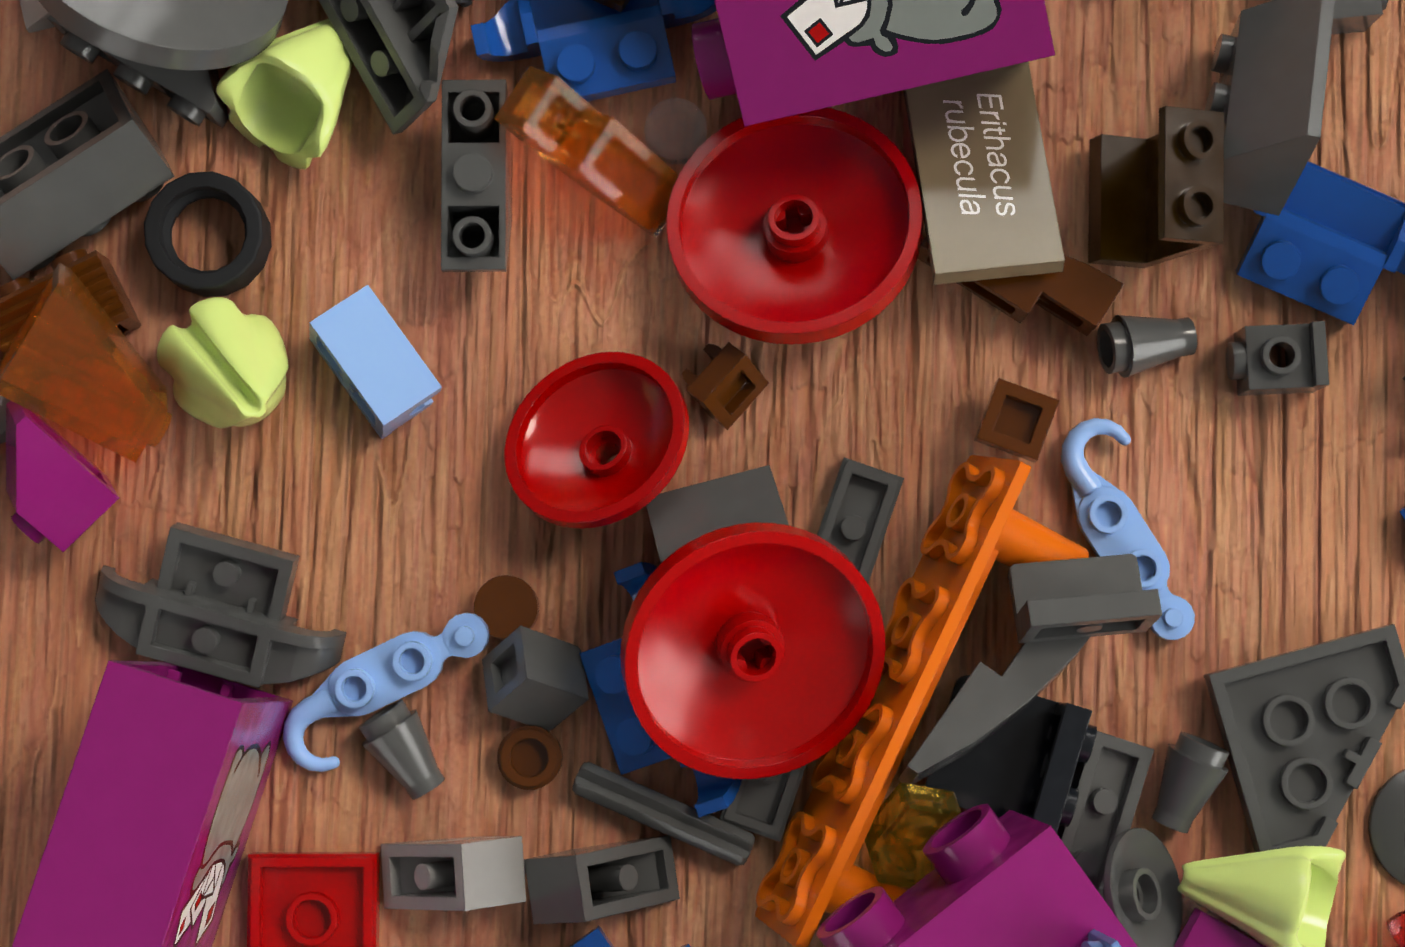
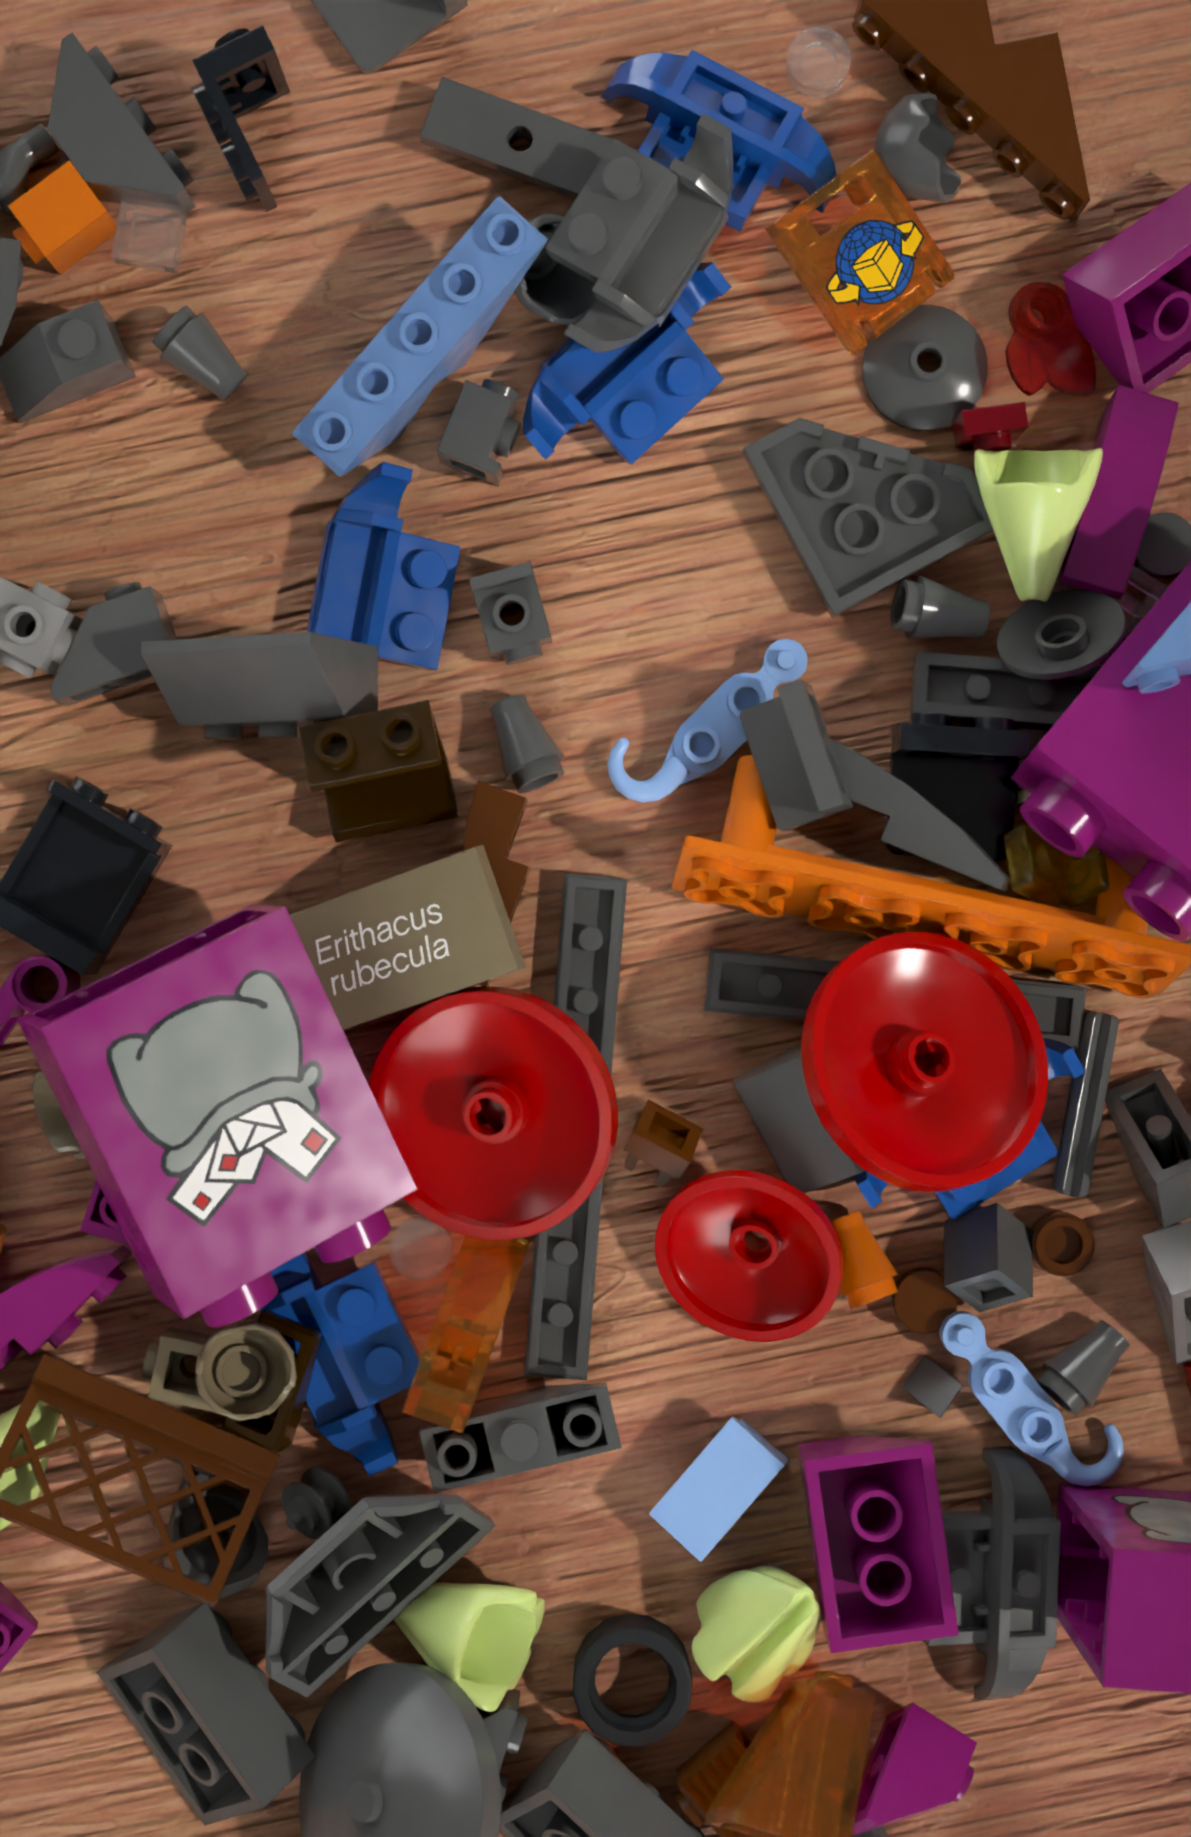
camera: 105 degrees left, 5 degrees up
(286, 498) = (877, 1541): none -> magenta slope
(421, 595) = (932, 1386): none -> dark grey piece
(556, 551) = (866, 1267): none -> orange cone
(645, 273) = (568, 1251): none -> dark grey tile
(1016, 420) = (633, 853): reddish brown tile -> none
(1364, 876) = (990, 427): none -> dark red plate

